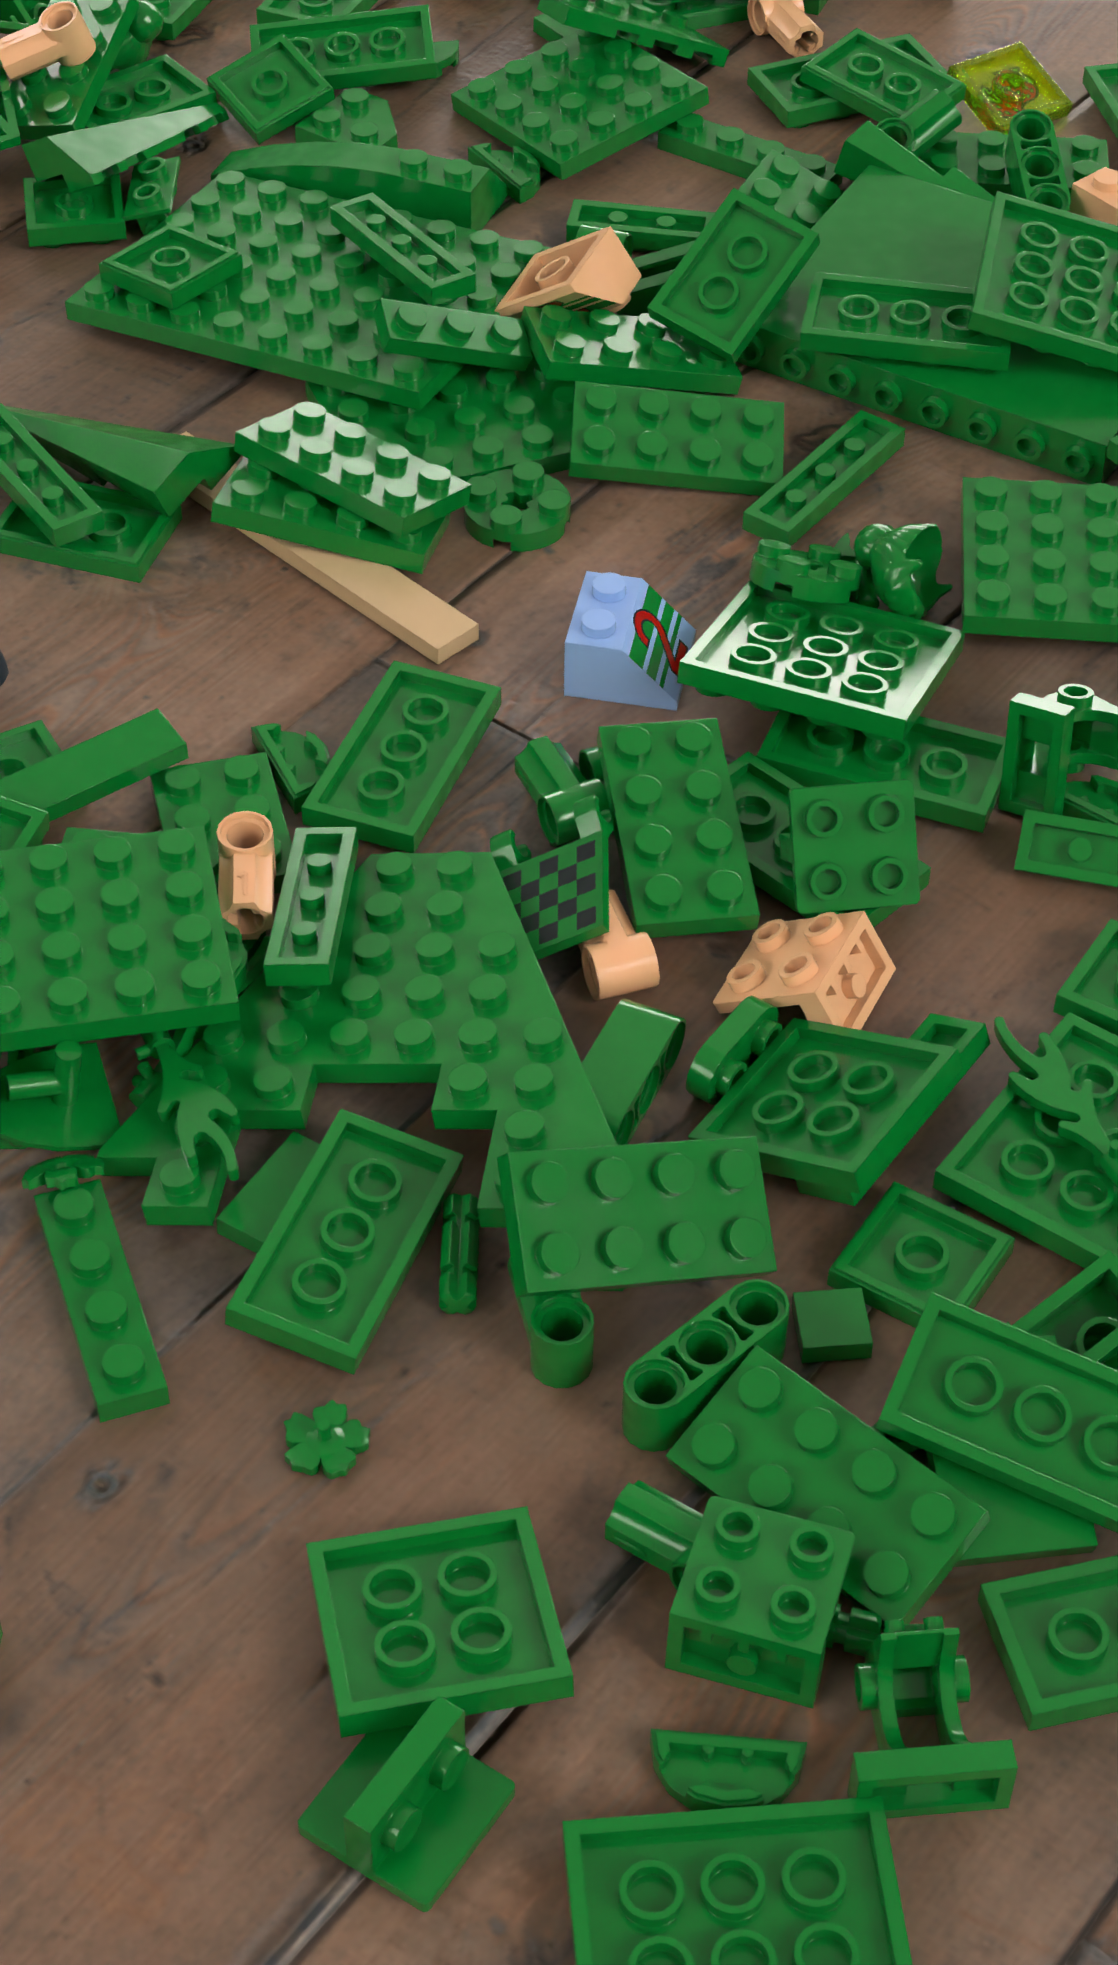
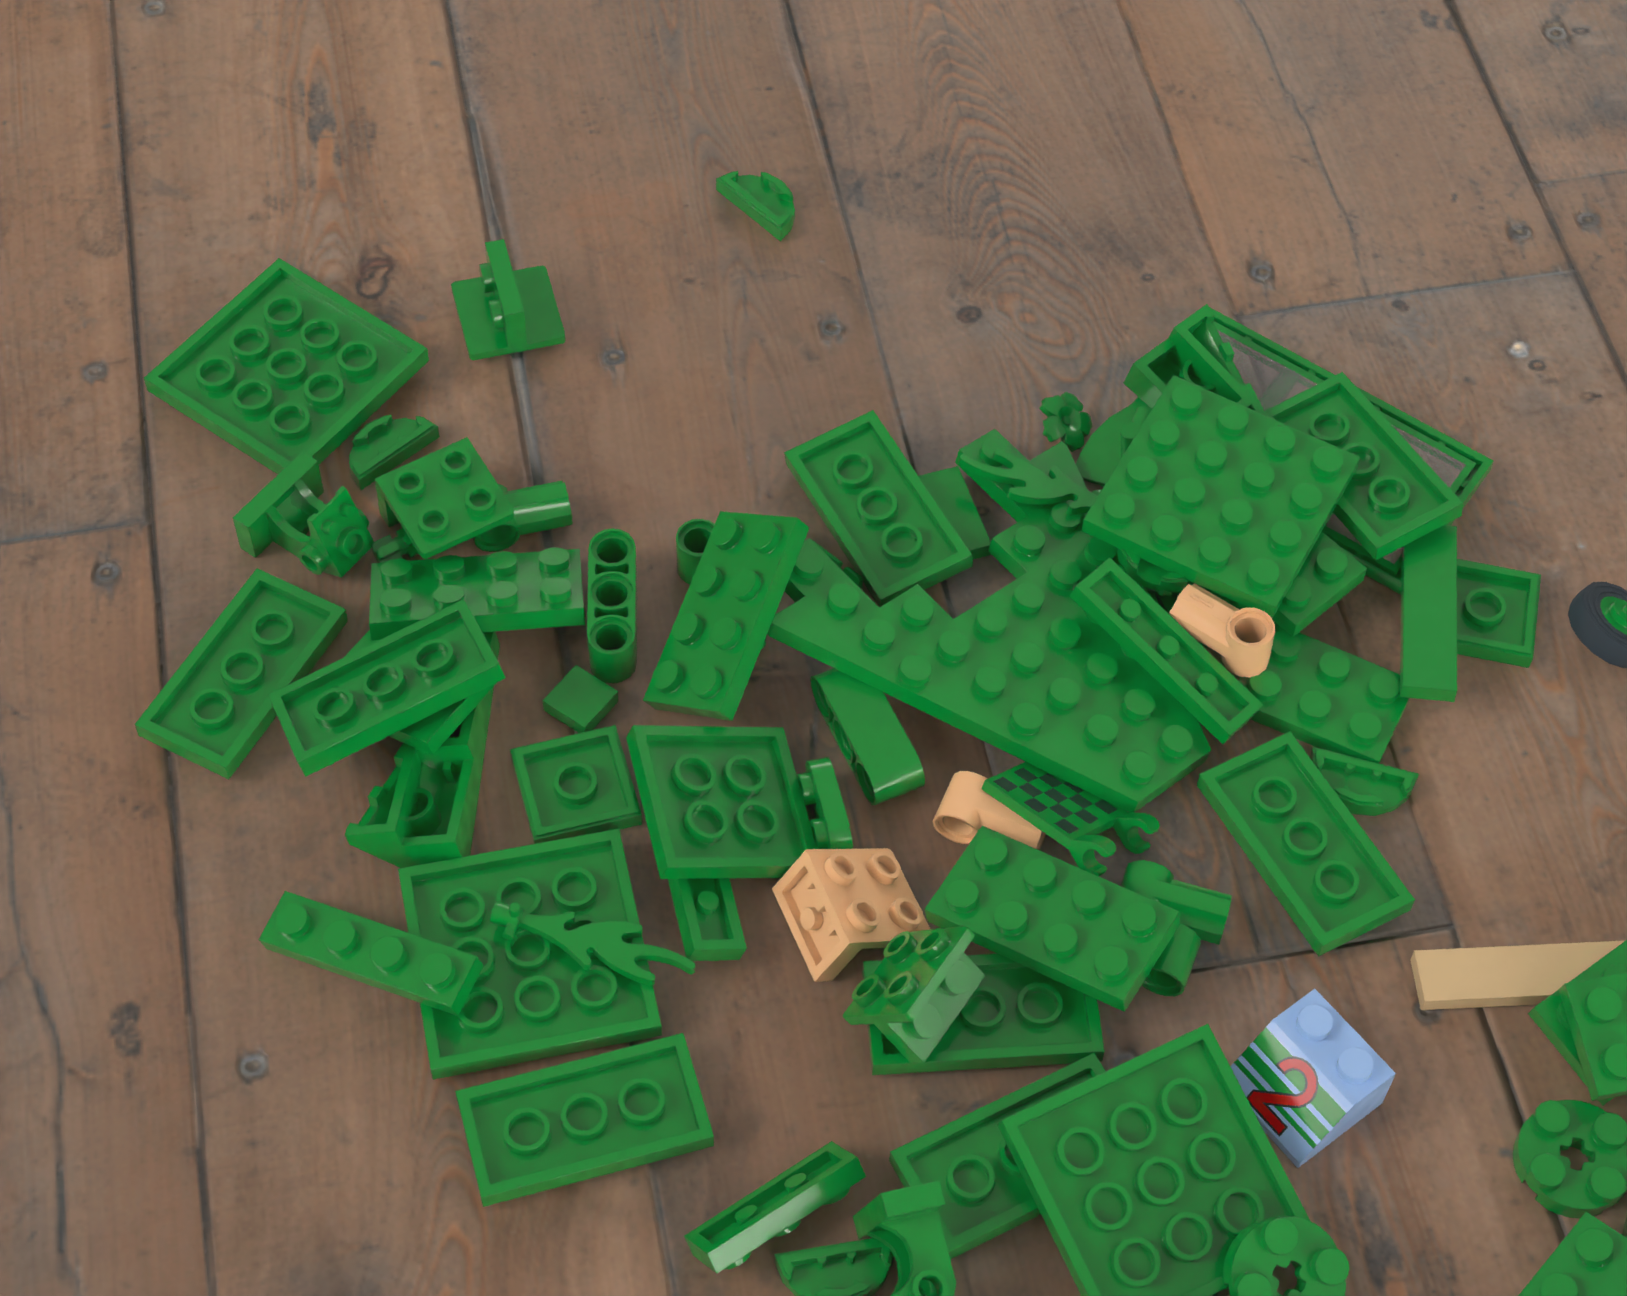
camera: 130 degrees right, 10 degrees up
(101, 1301) = (953, 390): green plate -> none
(325, 1441) = (756, 426): green plant -> none
(436, 1613) = (585, 376): green plate -> none

